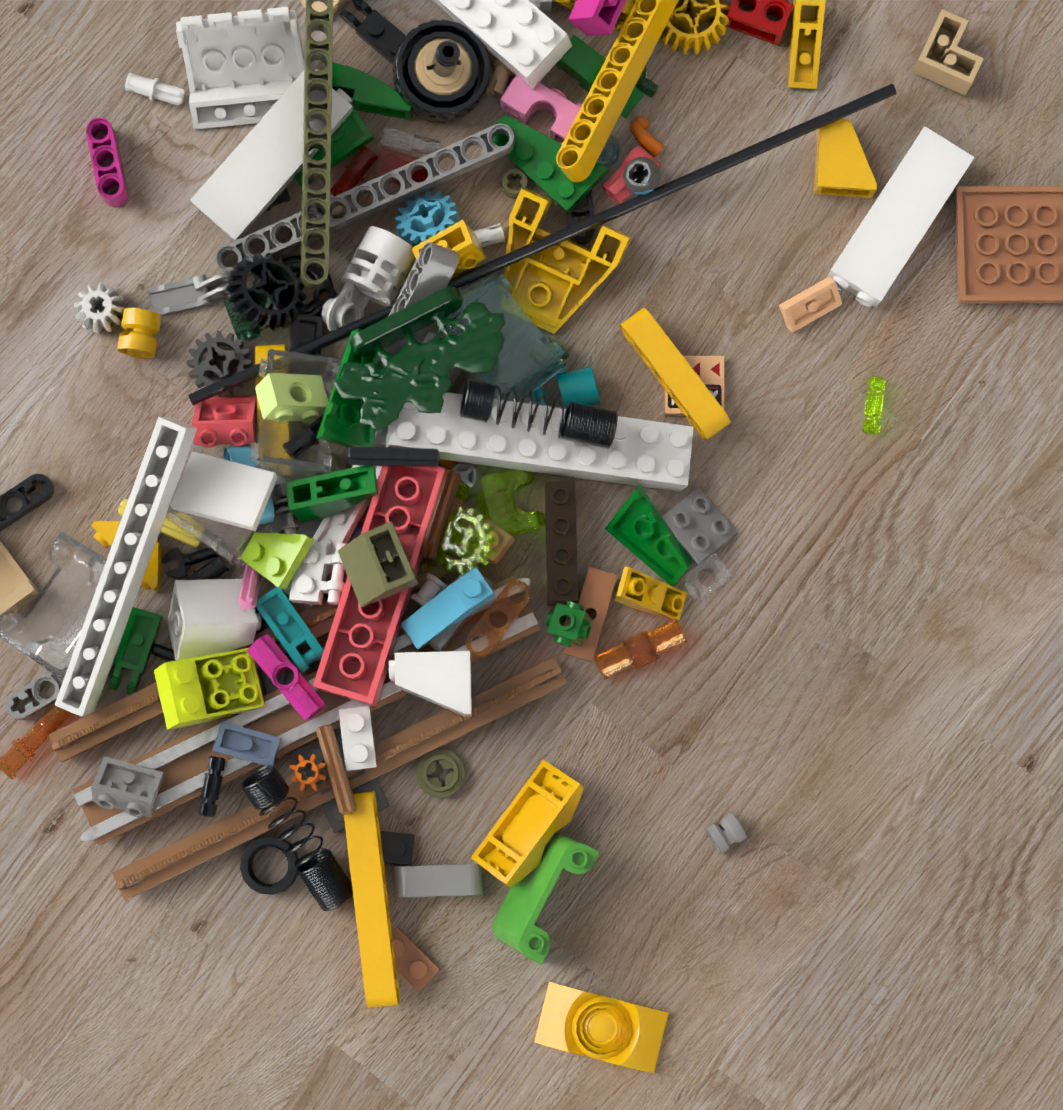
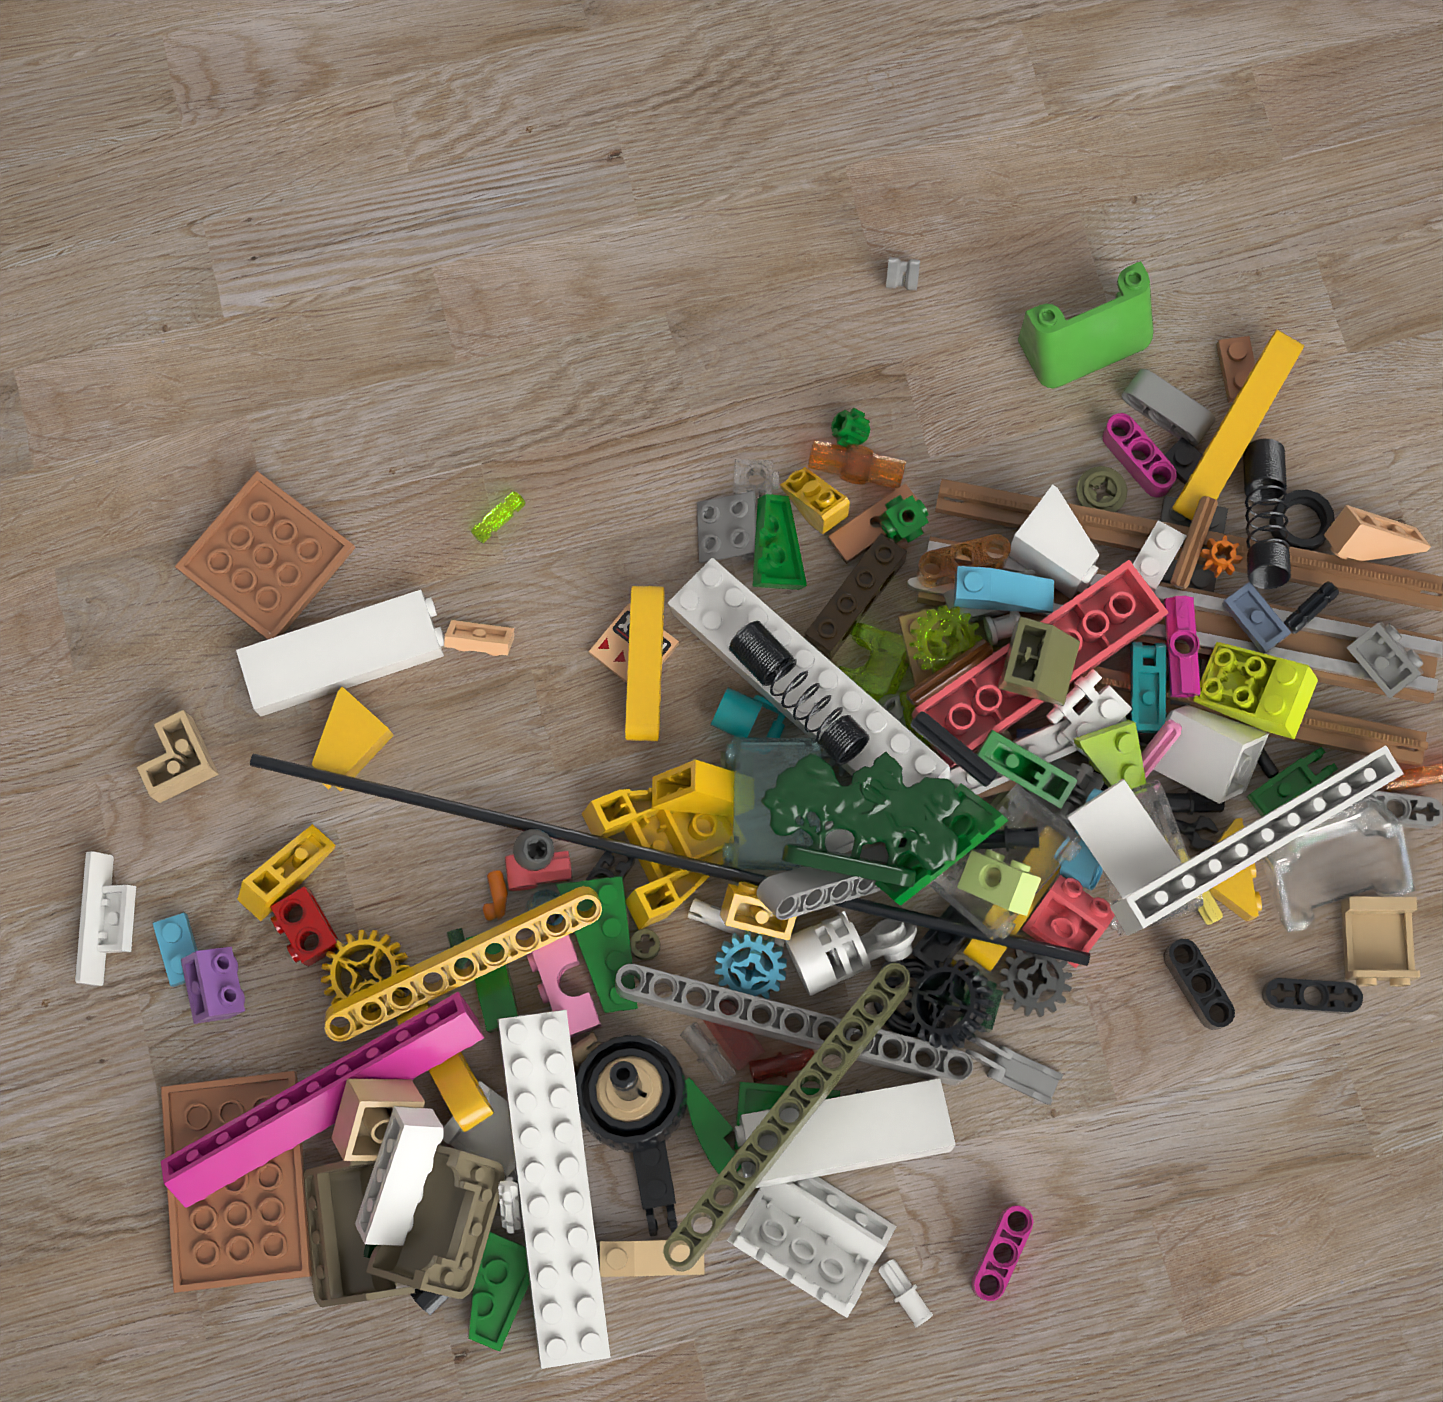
camera: 135 degrees left, 5 degrees down
(90, 438) = (1198, 1001): none -> black beam
(103, 298) = (1118, 1123): white gear -> none
(139, 333) = (1089, 1062): yellow wheel -> none
(206, 887) = (1372, 537): none -> light nougat slope
(416, 822) = (1137, 440): none -> dark pink beam
(528, 824) = (1062, 389): yellow slope -> none
(564, 305) = (695, 789): none -> yellow slope
(601, 1027) = (1119, 207): yellow slope -> none
(667, 673) = (850, 427): none -> green gear

